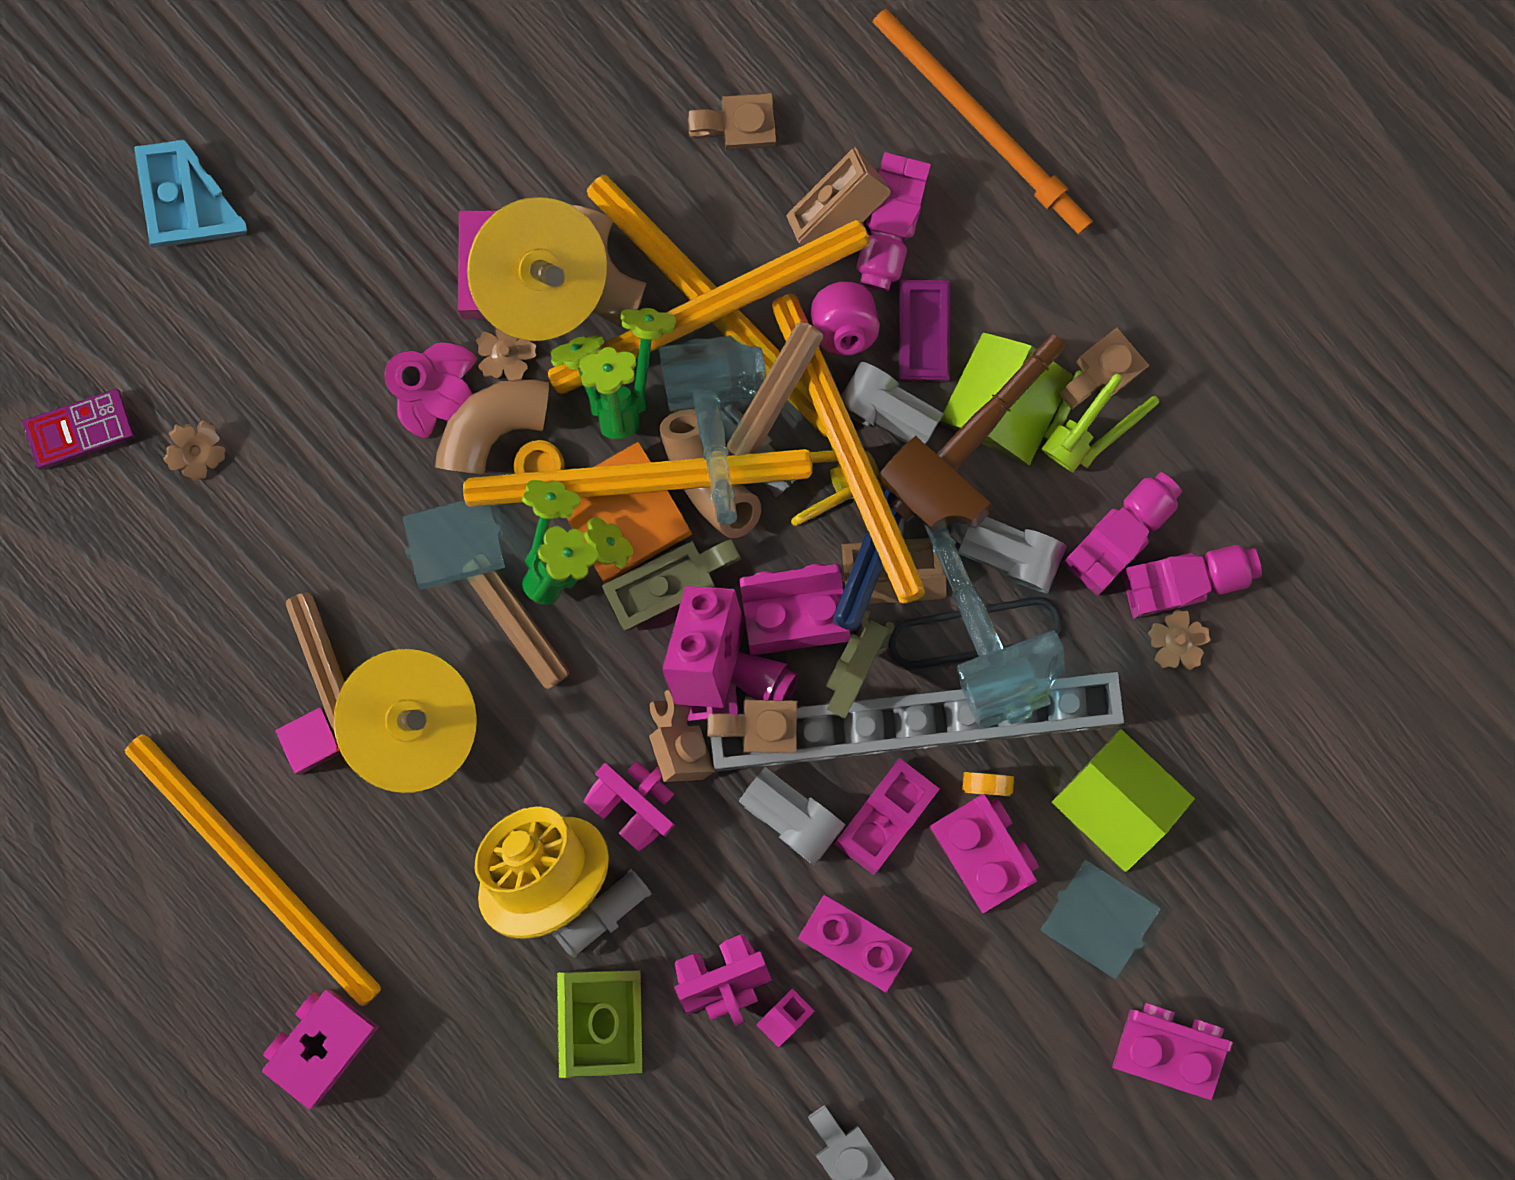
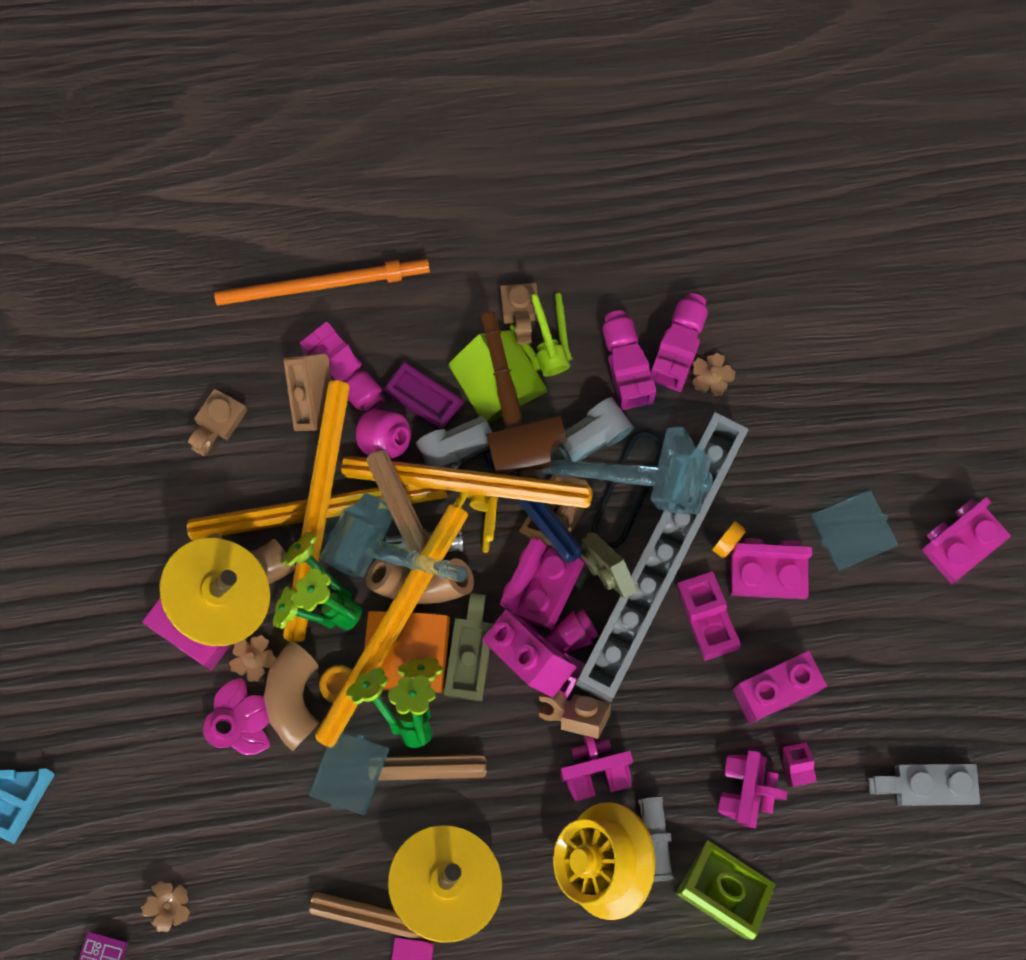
camera: 60 degrees left, 10 degrees down
(766, 726) = (607, 648): medium nougat plate -> none
(801, 822) = (680, 670): light grey piece -> none
(1123, 801) = (791, 469): lime slope -> none

